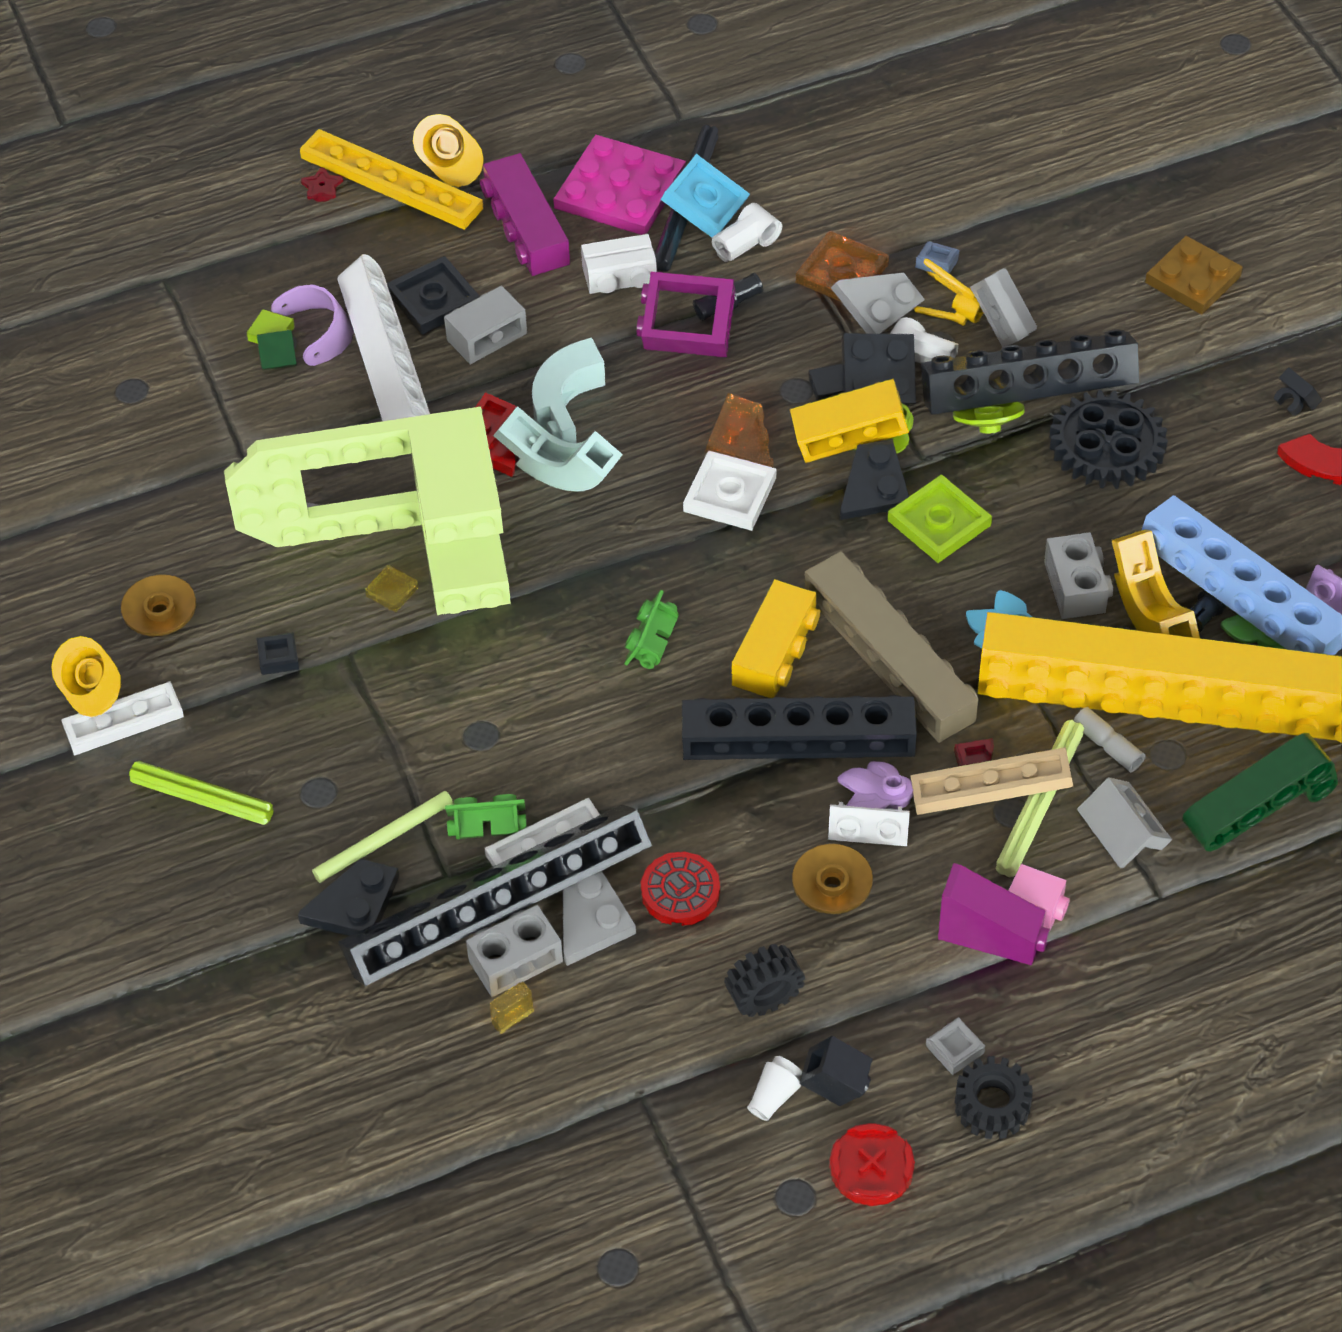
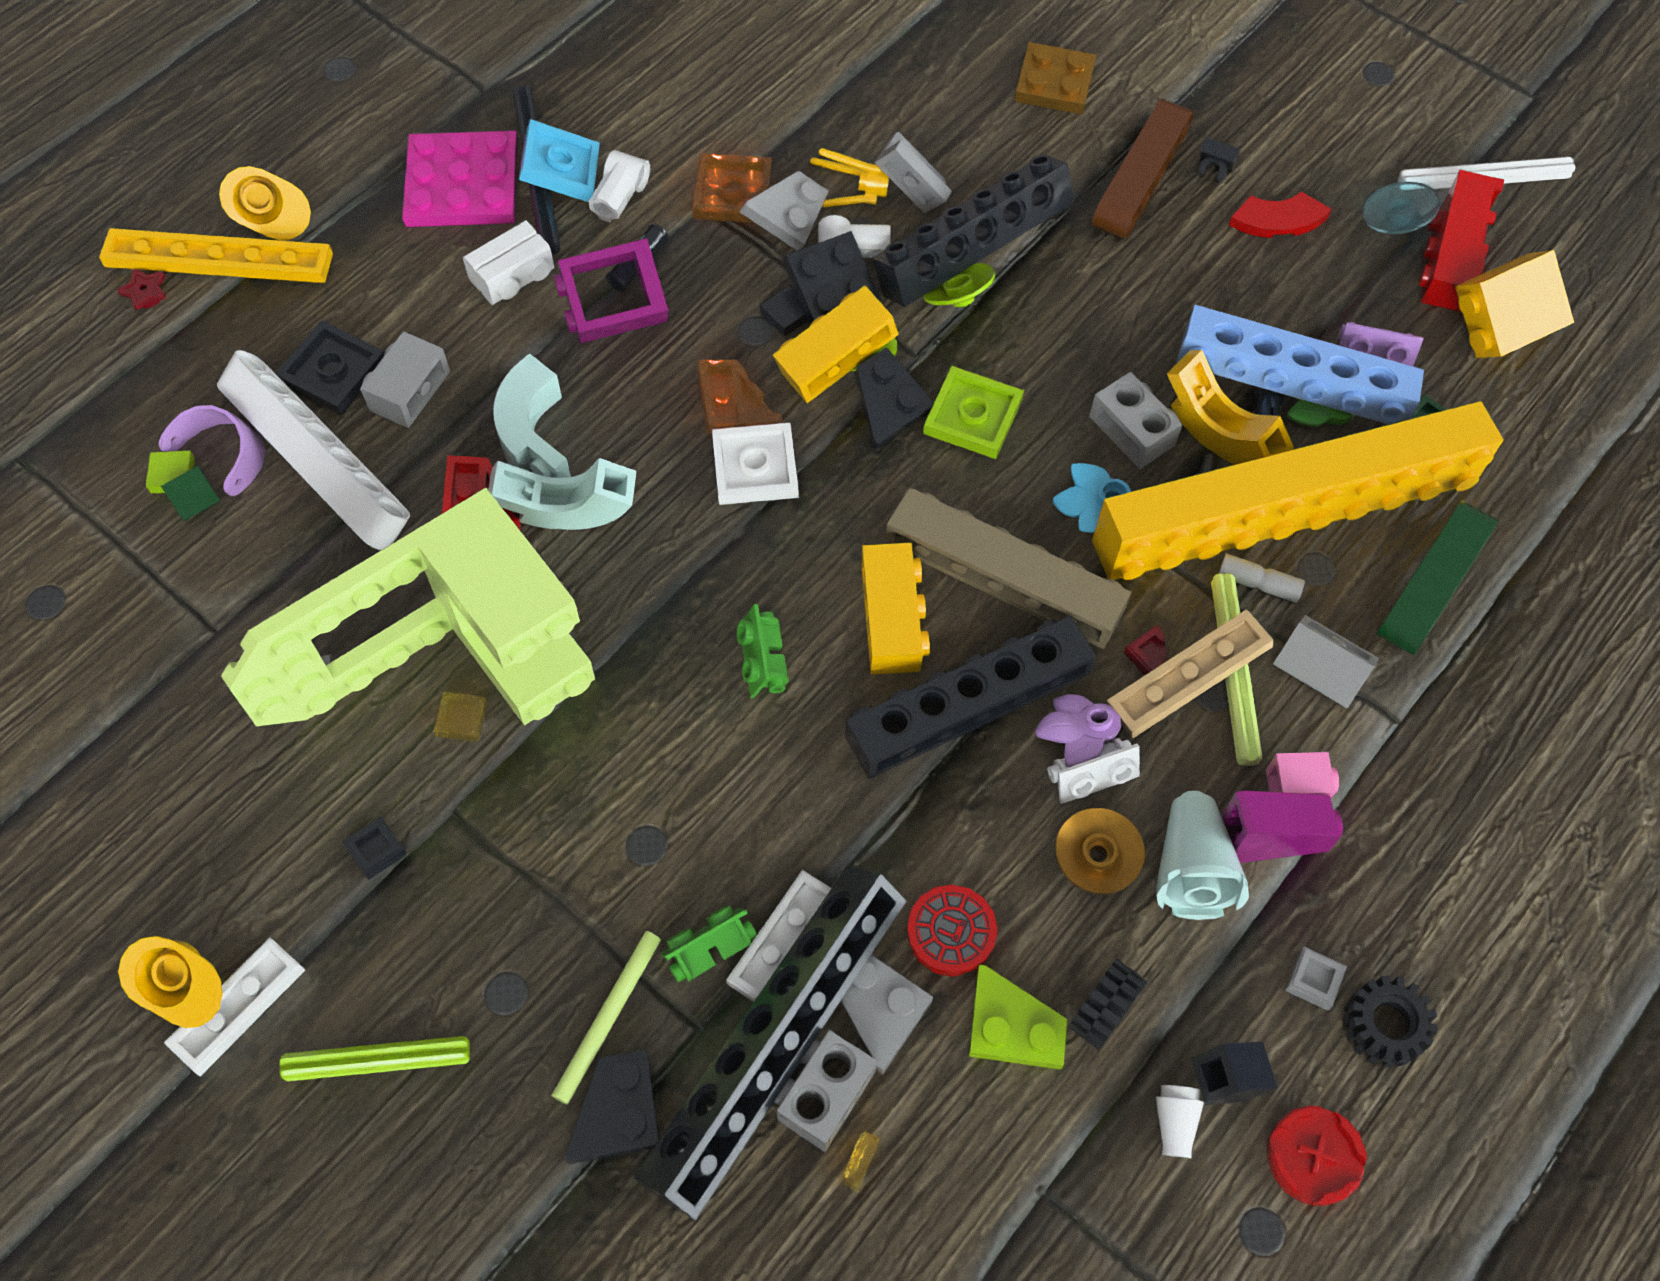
camera: 30 degrees left, 10 degrees up
(158, 605) = (196, 839): pearl gold dish -> none
(525, 214) = (383, 244): magenta brick -> none
(687, 973) = (1014, 1024): none -> lime wing
(903, 918) = (1199, 861): none -> light aqua cone
(941, 255) = (811, 141): sand blue tile -> none
(1108, 439) = (1080, 269): black gear -> none
(1222, 376) = (1142, 168): none -> reddish brown beam

